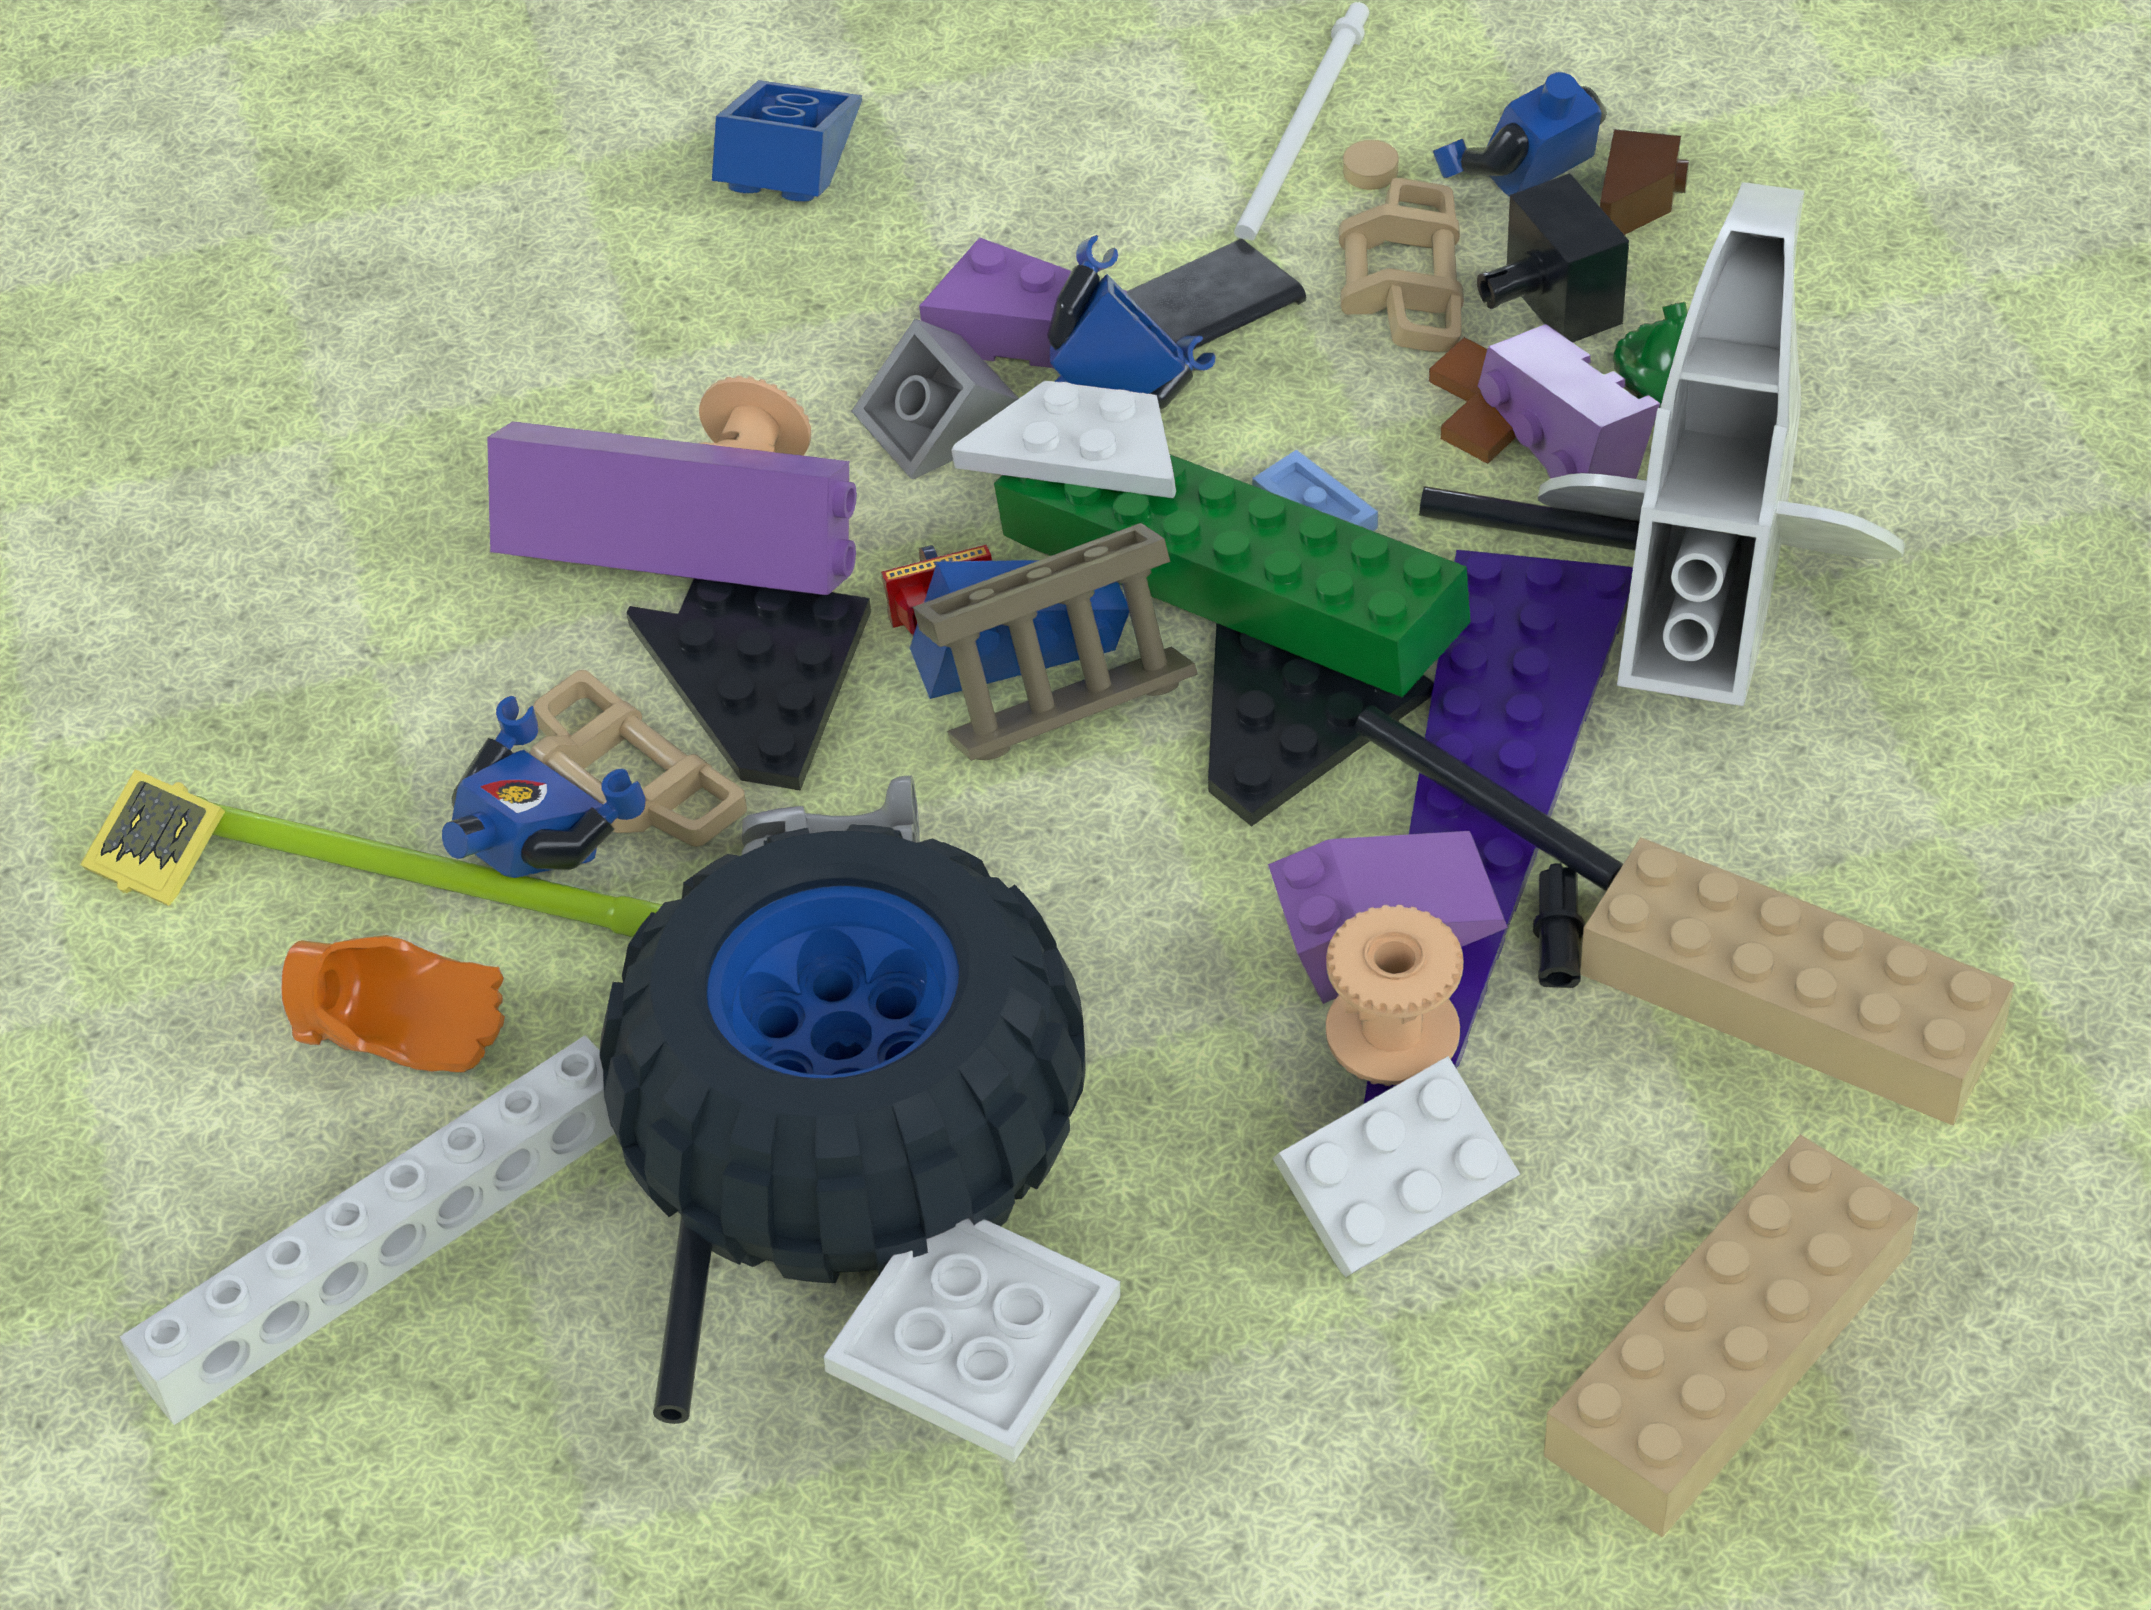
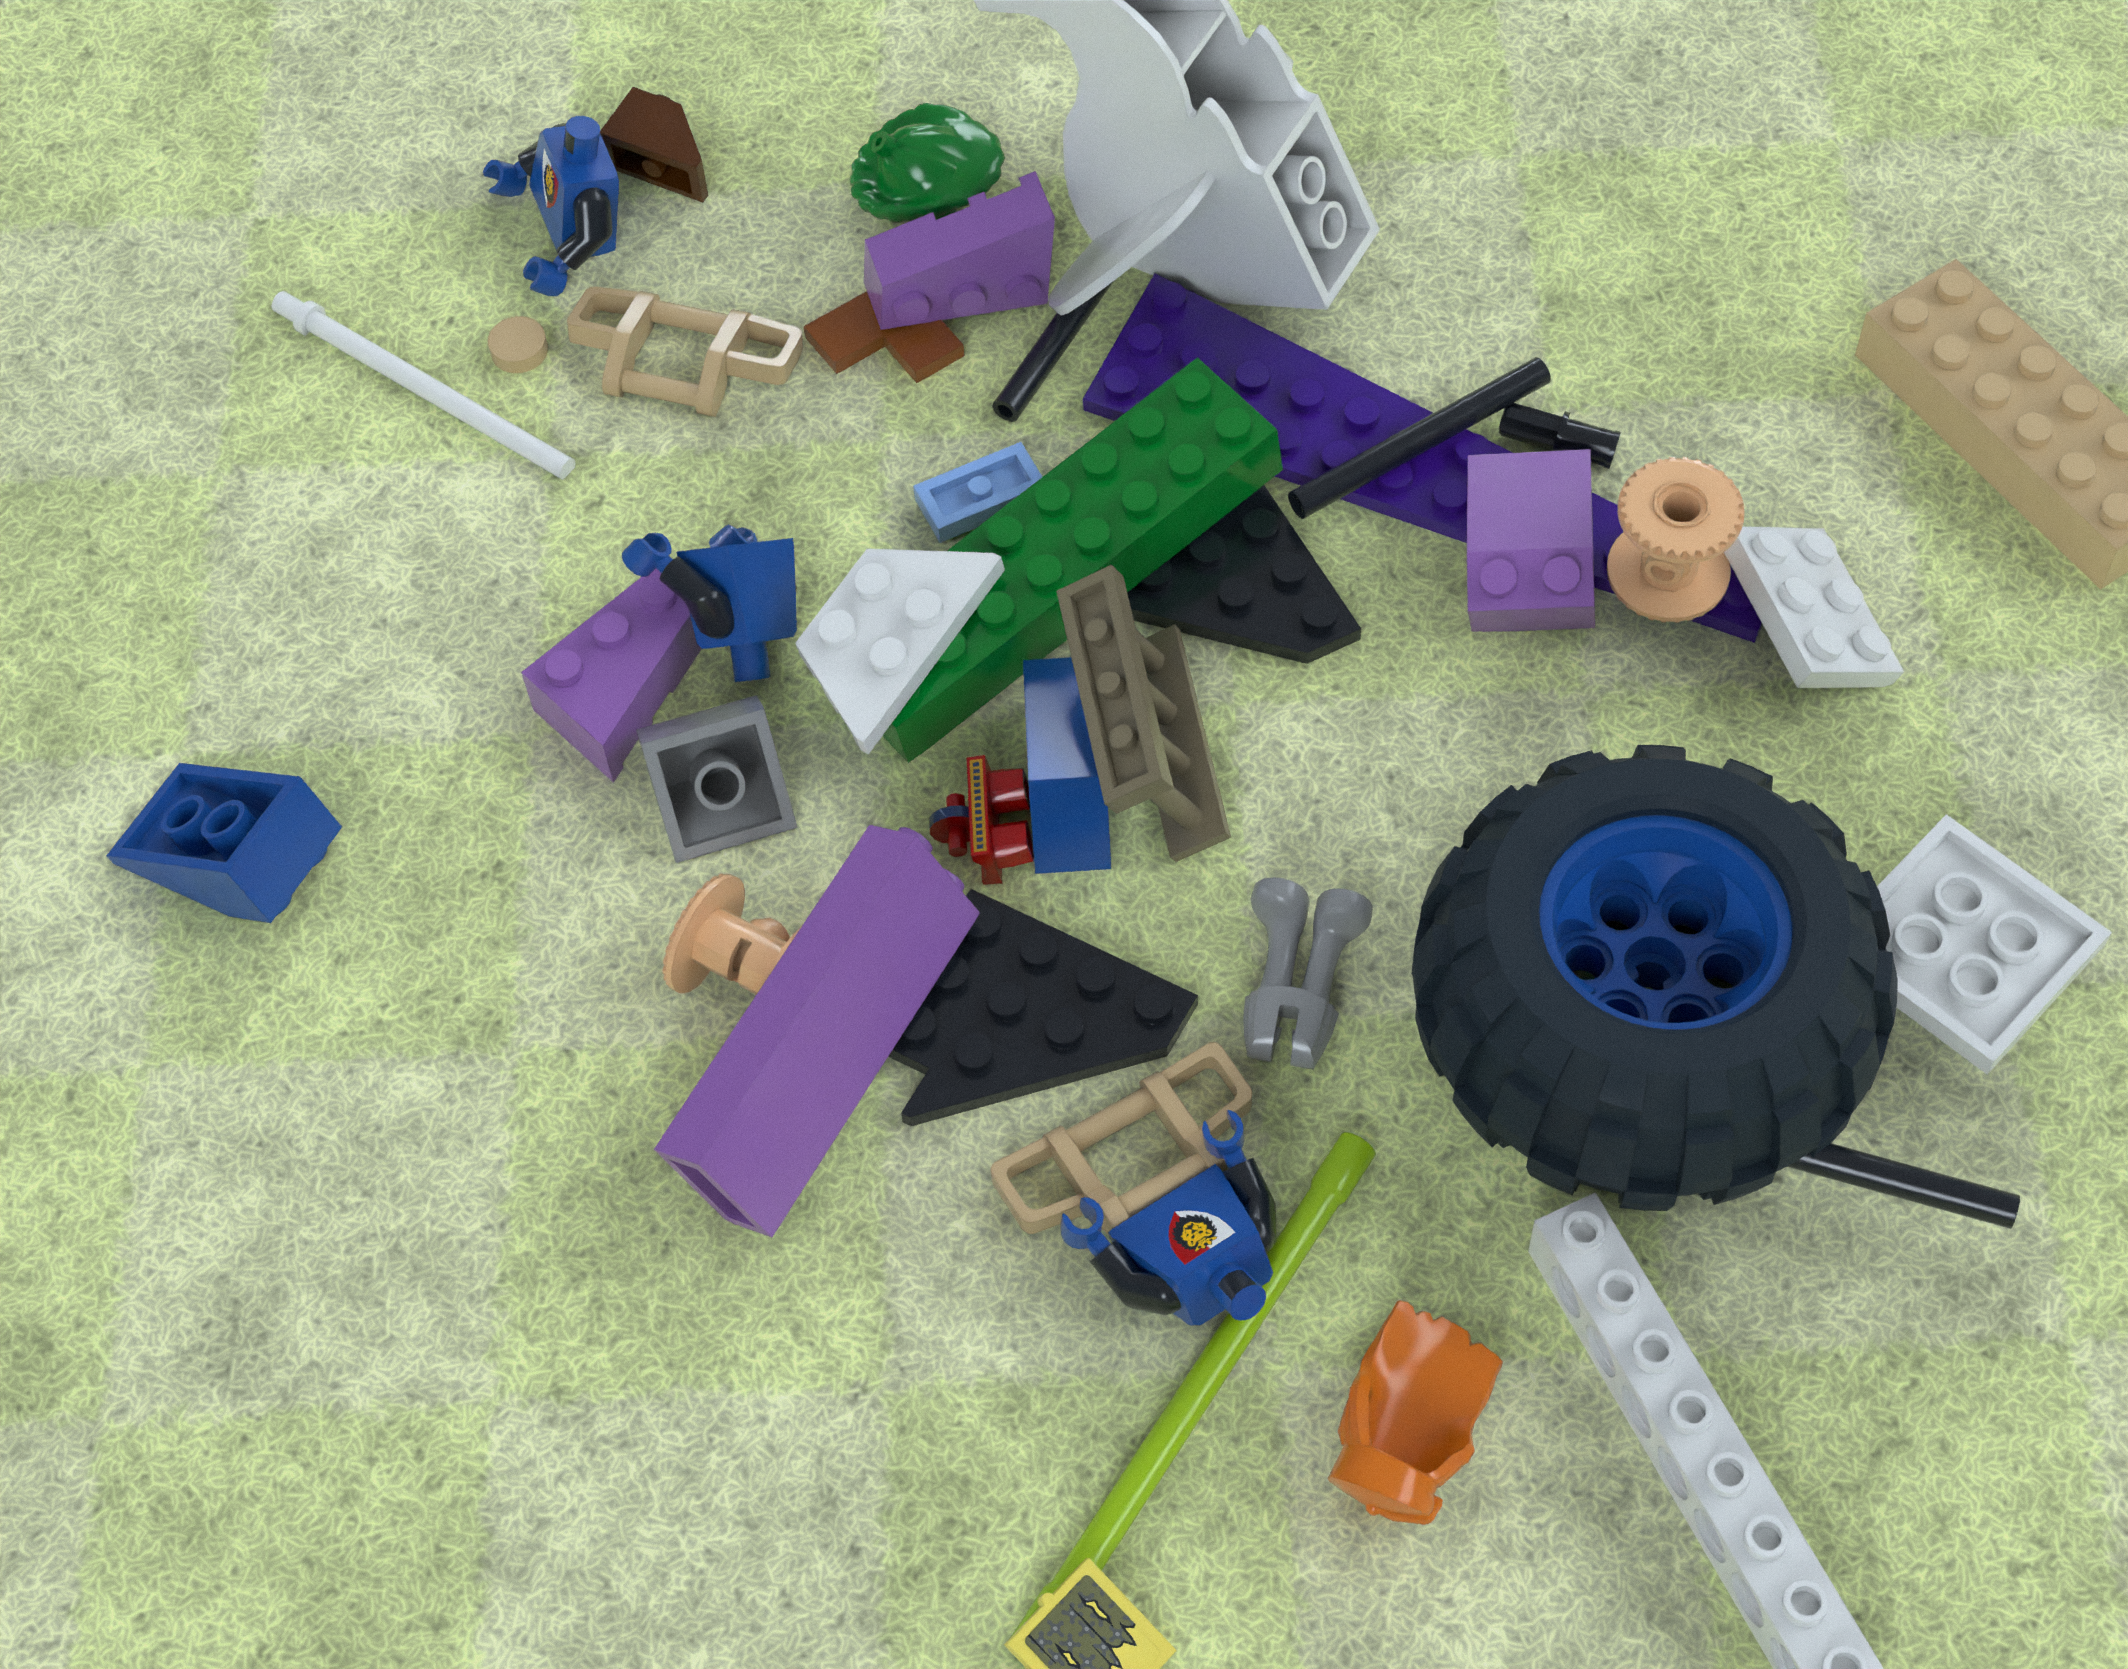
camera: 75 degrees left, 10 degrees up
(1217, 293) = (637, 496): black piece -> none
(1562, 260) = (766, 212): black brick -> none
(1796, 980) = (1674, 285): tan brick -> none

